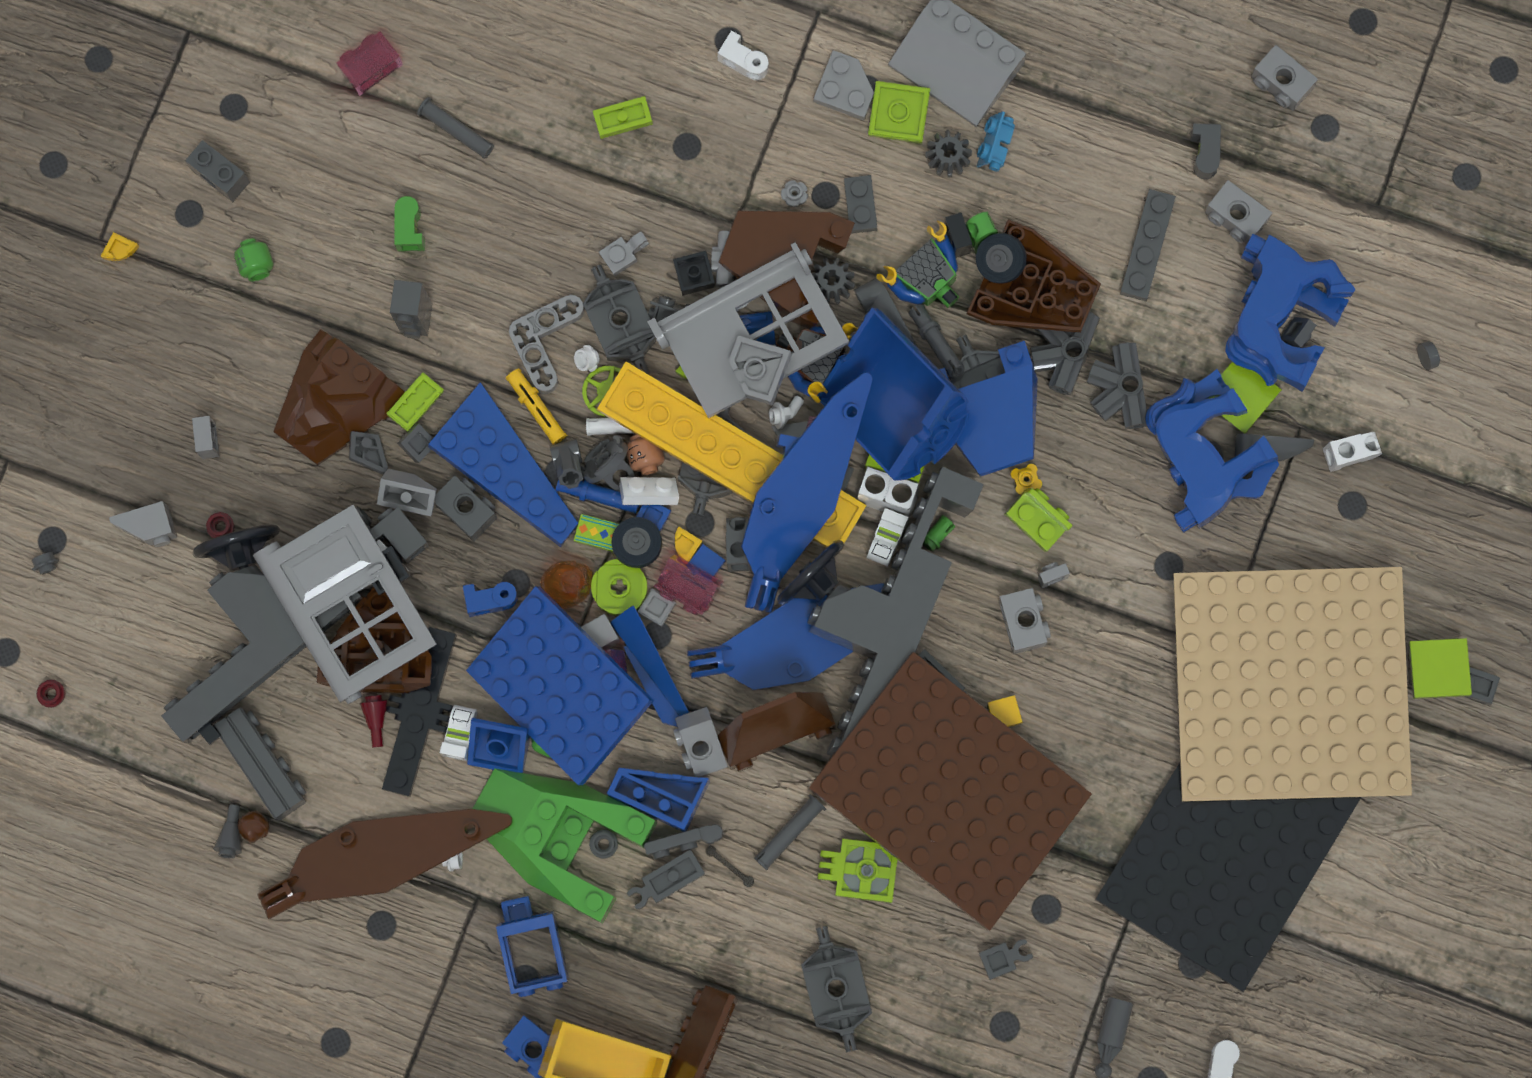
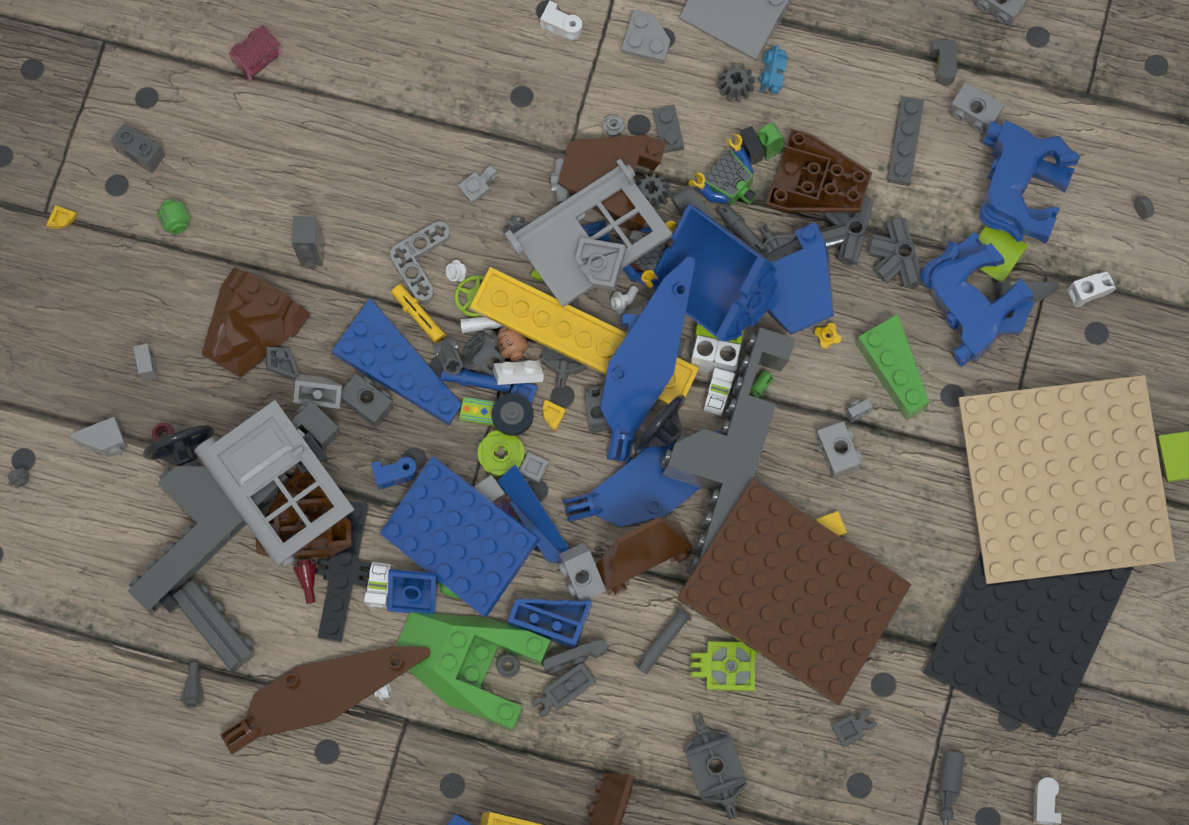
camera: 10 degrees left, 5 degrees down
(42, 692) = (27, 579): dark red plate -> none
(253, 826) = (212, 678): reddish brown piece -> none
(405, 225) = (297, 171): bright green leg -> none
(415, 402) = (317, 319): lime plate -> none
(416, 443) = (321, 351): dark grey plate -> none
(455, 128) = (330, 97): dark grey pin -> none
(517, 908) = (441, 730): blue tile -> none
(525, 924) = (474, 784): blue window -> none
(567, 582) = (458, 453): clear orange hair -> none
(622, 117) = (467, 77): lime plate -> none
(626, 341) = (484, 254): dark grey plate -> none
(688, 585) = (558, 445): clear pink hinge -> none
(694, 273) = (537, 195): black piece -> none
(707, 560) = (570, 428): blue tile -> none
(711, 851) = (632, 685): clear smoke hinge -> none
(899, 112) = (692, 54): lime tile -> none
(1001, 258) = (788, 159): black wheel -> none
(1038, 518) = (842, 365): lime bracket -> none
(1101, 521) = (893, 363): none -> bright green wedge
(1298, 332) = (1037, 197): dark grey plate -> none

